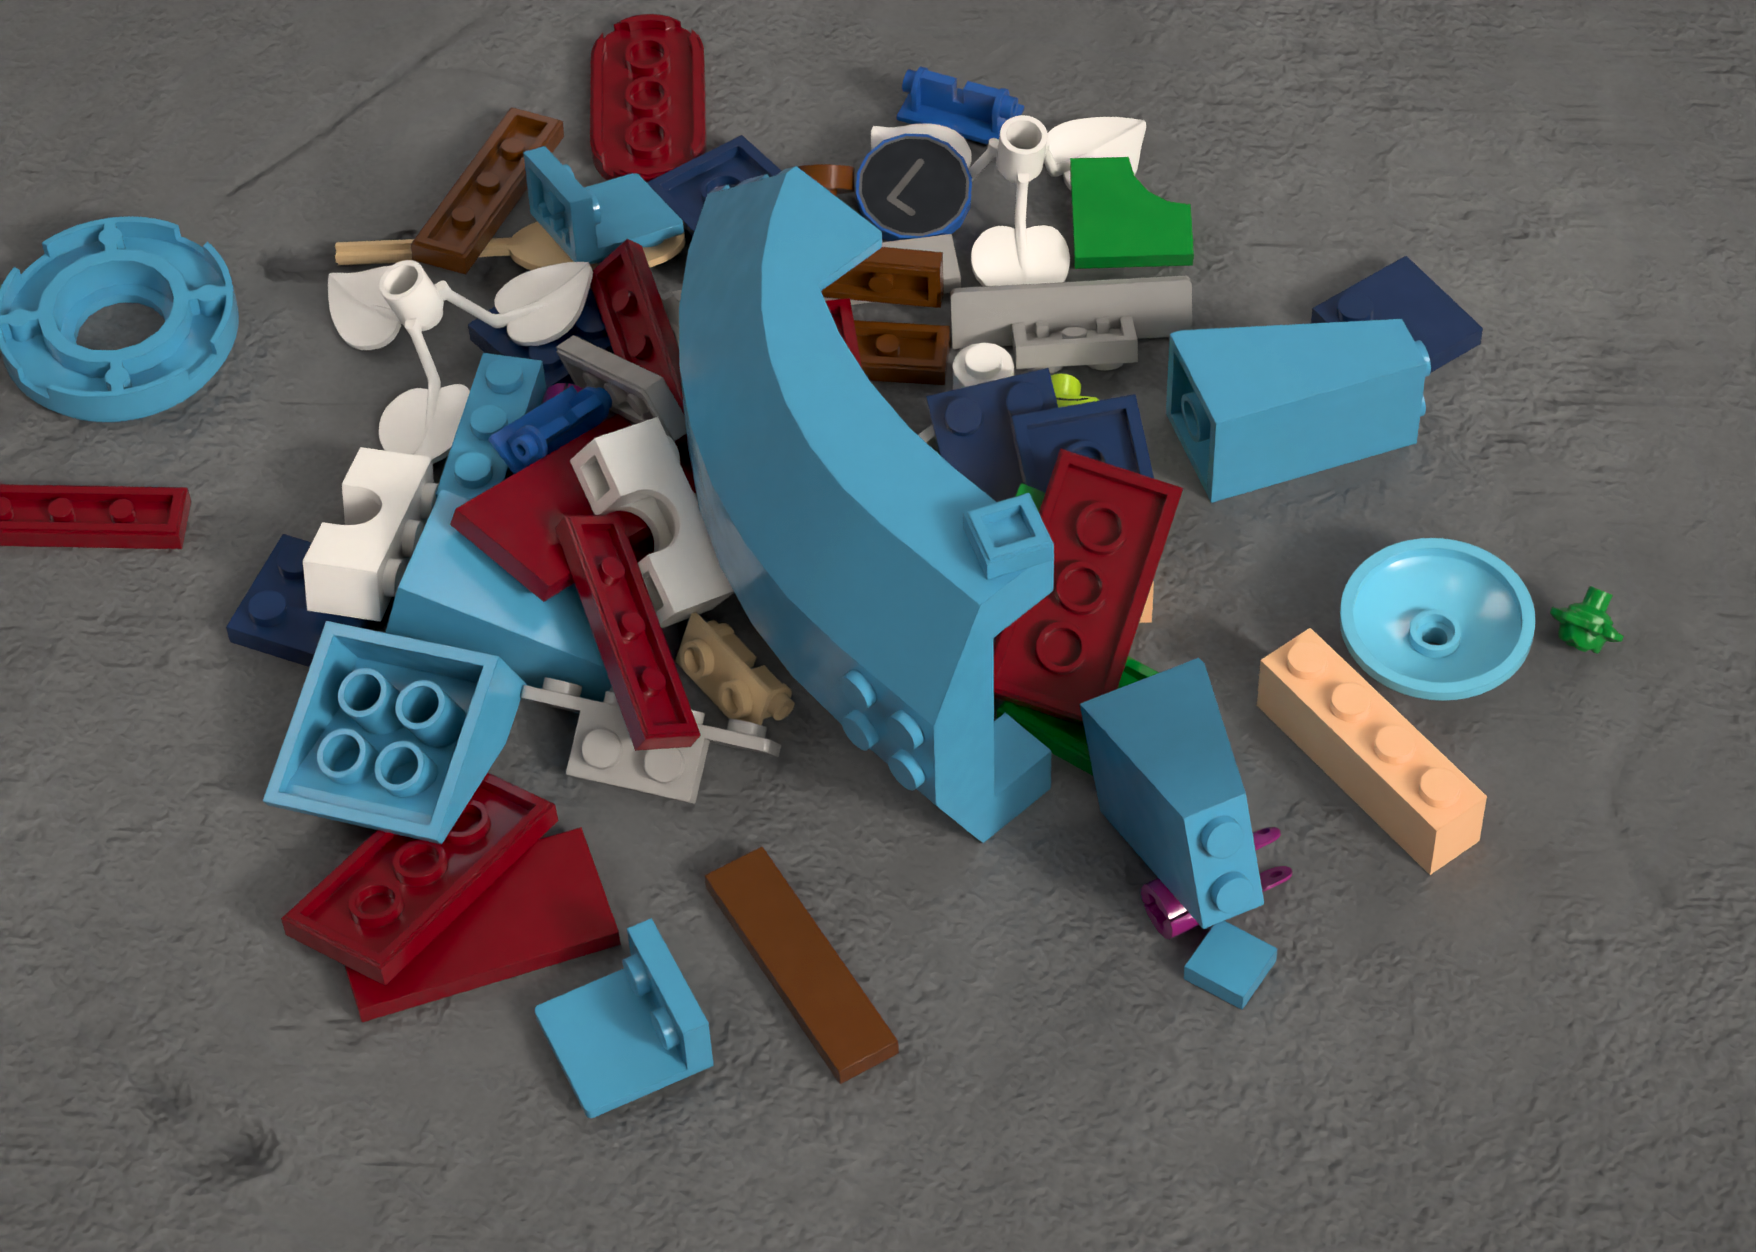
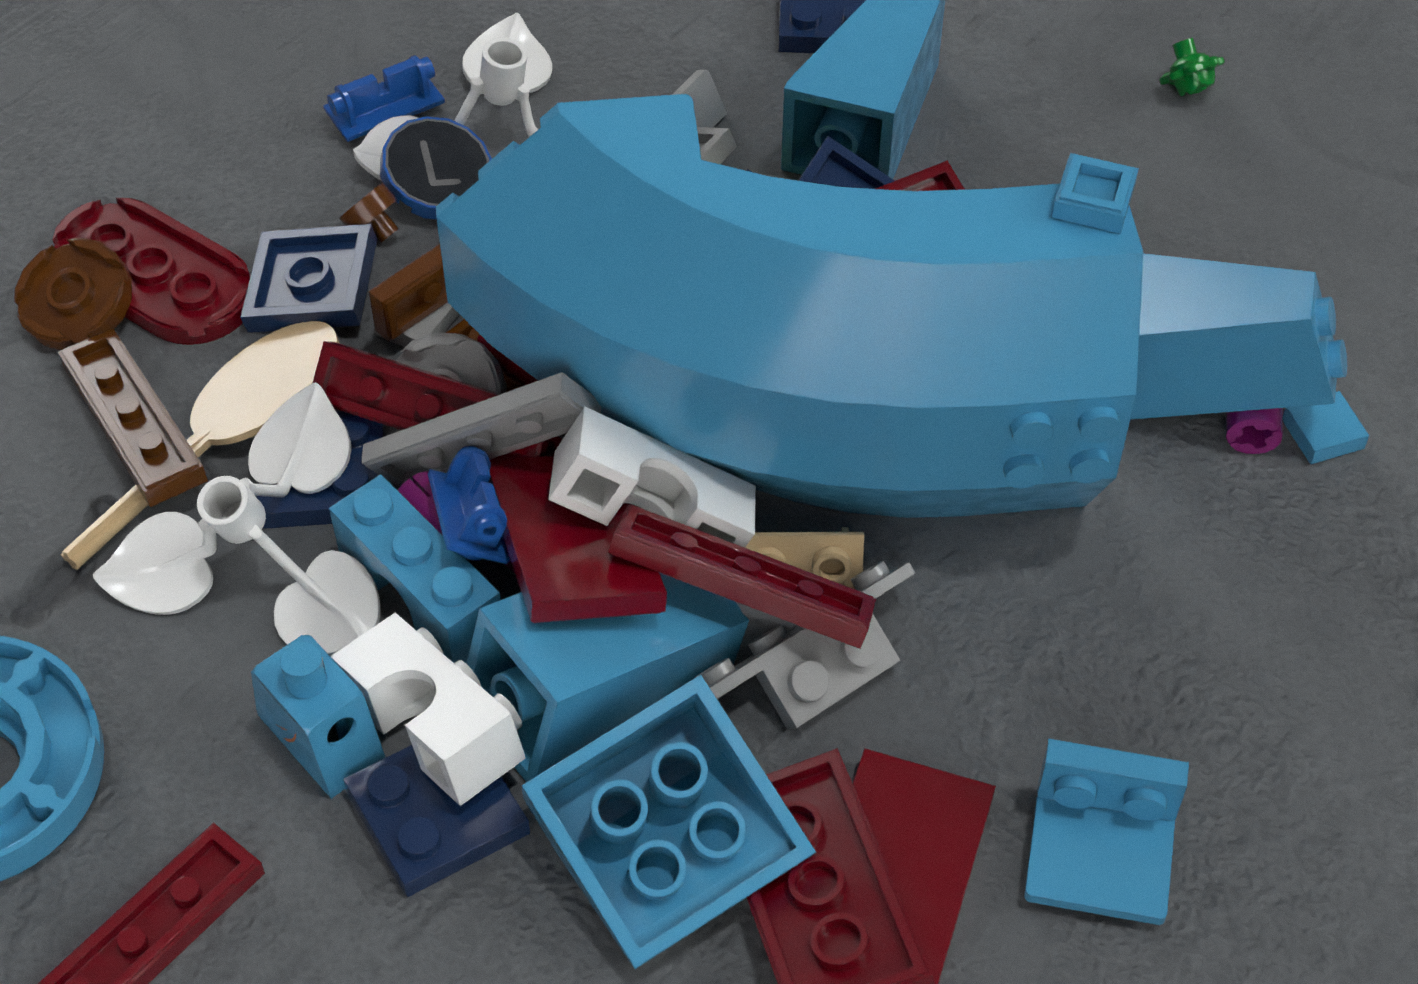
camera: 55 degrees left, 0 degrees up
(309, 455) = (300, 699): none -> dark azure torso
(570, 73) = (73, 293): none -> reddish brown tile
(596, 217) = (246, 355): dark azure bracket -> none
(801, 965) = (1119, 684): reddish brown tile -> none
(1123, 222) = (592, 73): green tile -> none
(1371, 751) = (1238, 226): light nougat brick -> none
(1442, 596) = (1139, 122): medium azure dish -> none

